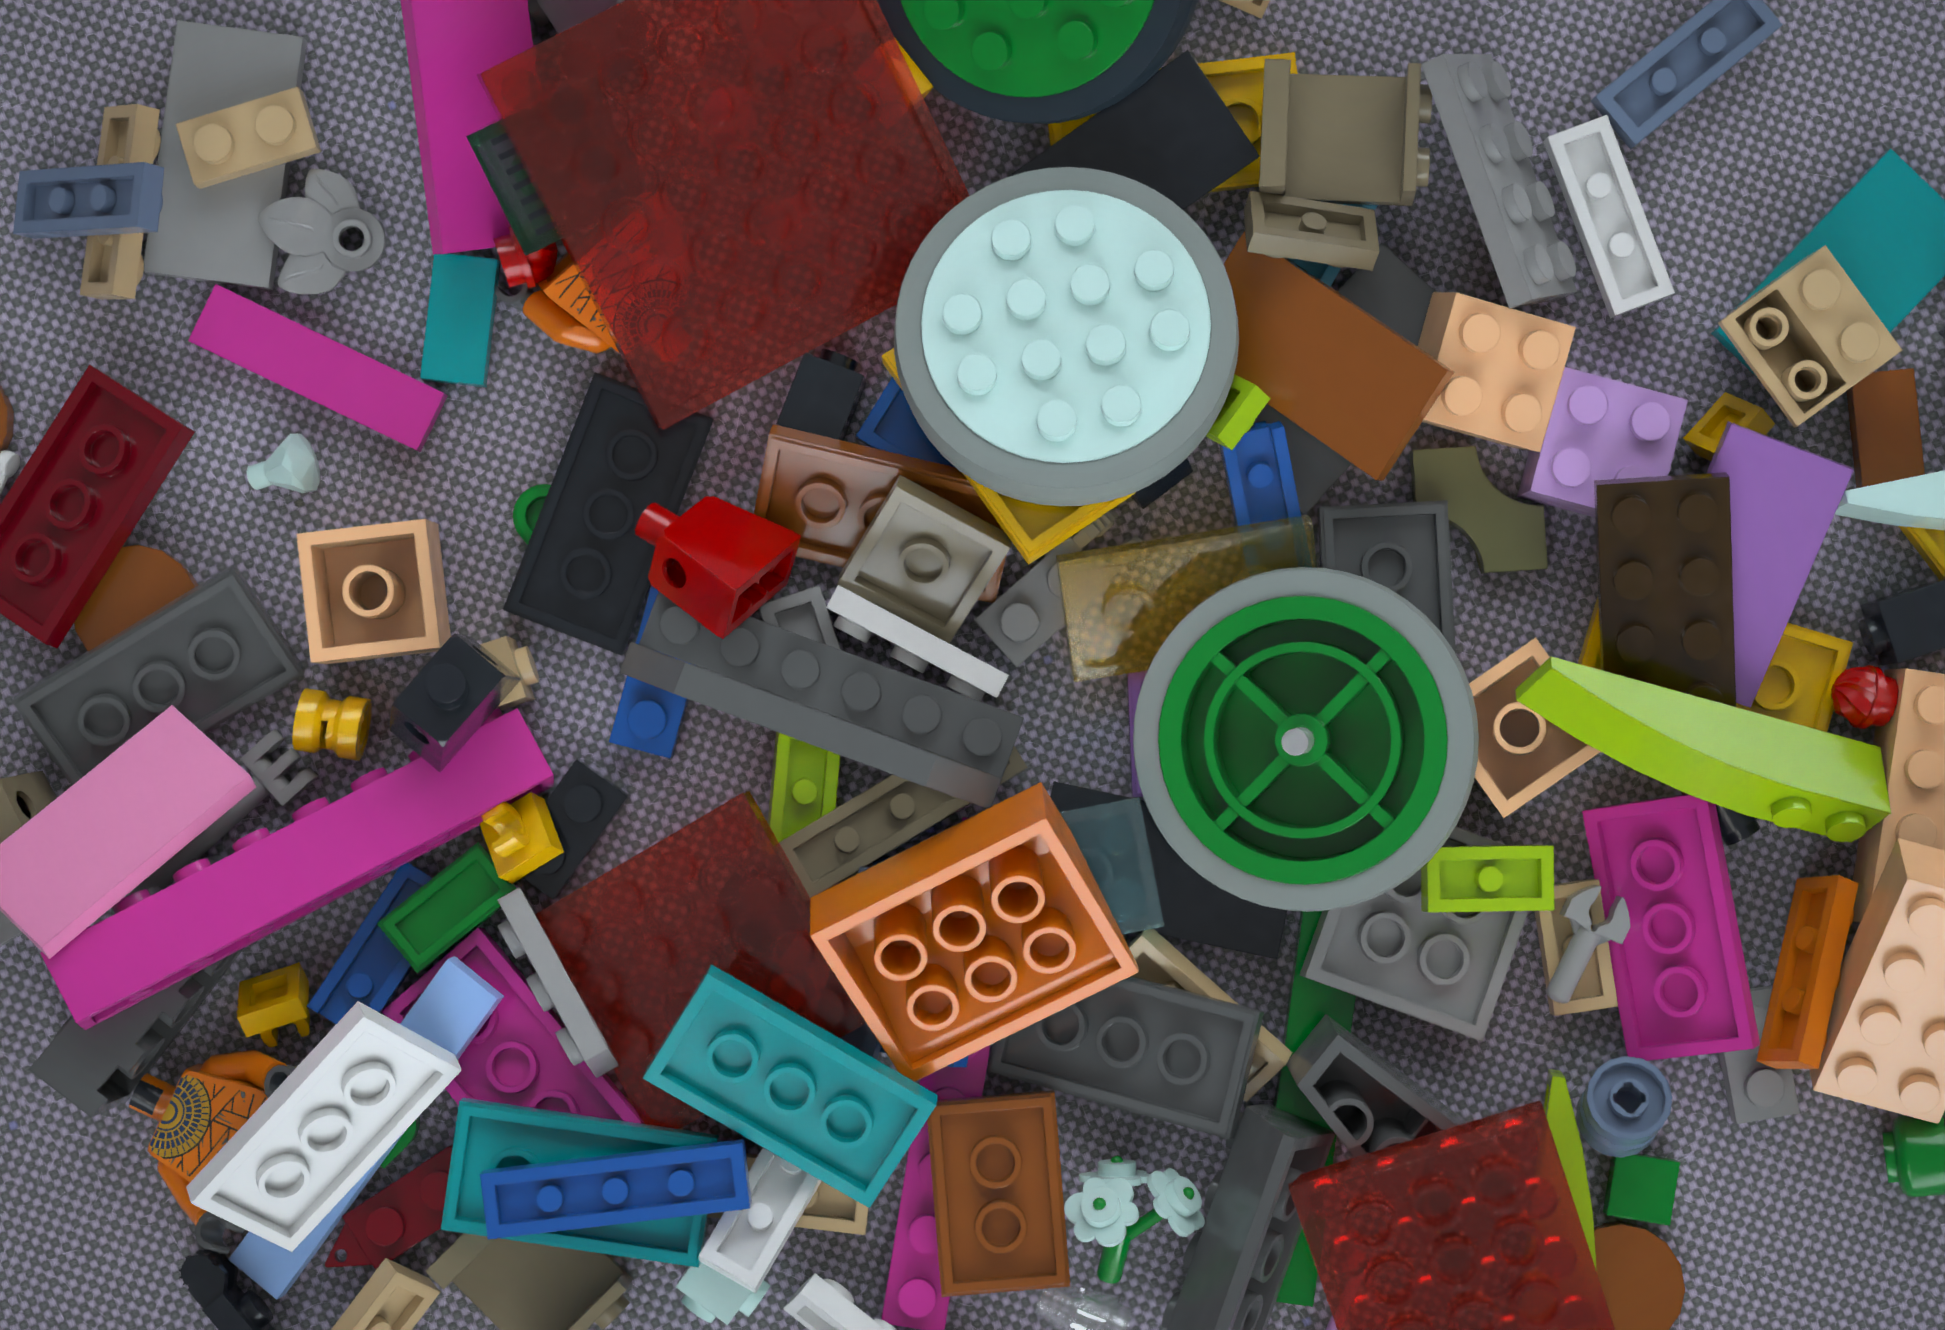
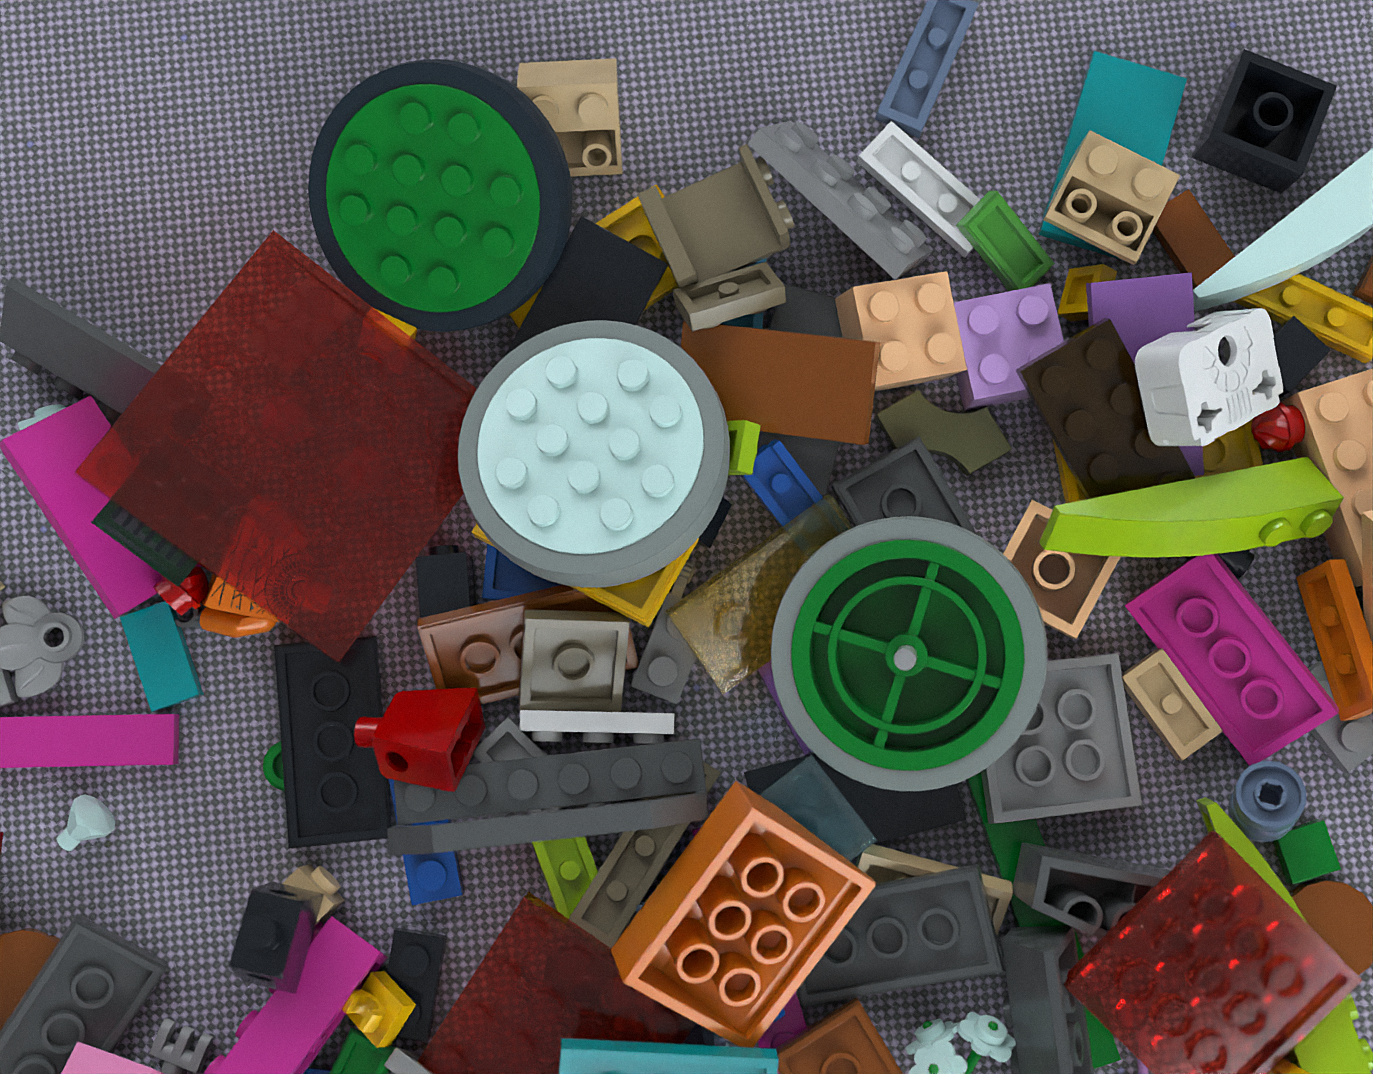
camera: 25 degrees left, 5 degrees down
(332, 724) = (203, 995): yellow wheel -> none
(373, 591) = (185, 883): light nougat brick -> none
(1489, 879) = (1088, 687): lime plate -> none
(1585, 939) = (1176, 694): light grey bar -> none
(1663, 326) = (1004, 242): none -> bright green tile
(1775, 605) = (1195, 397): none -> white axle

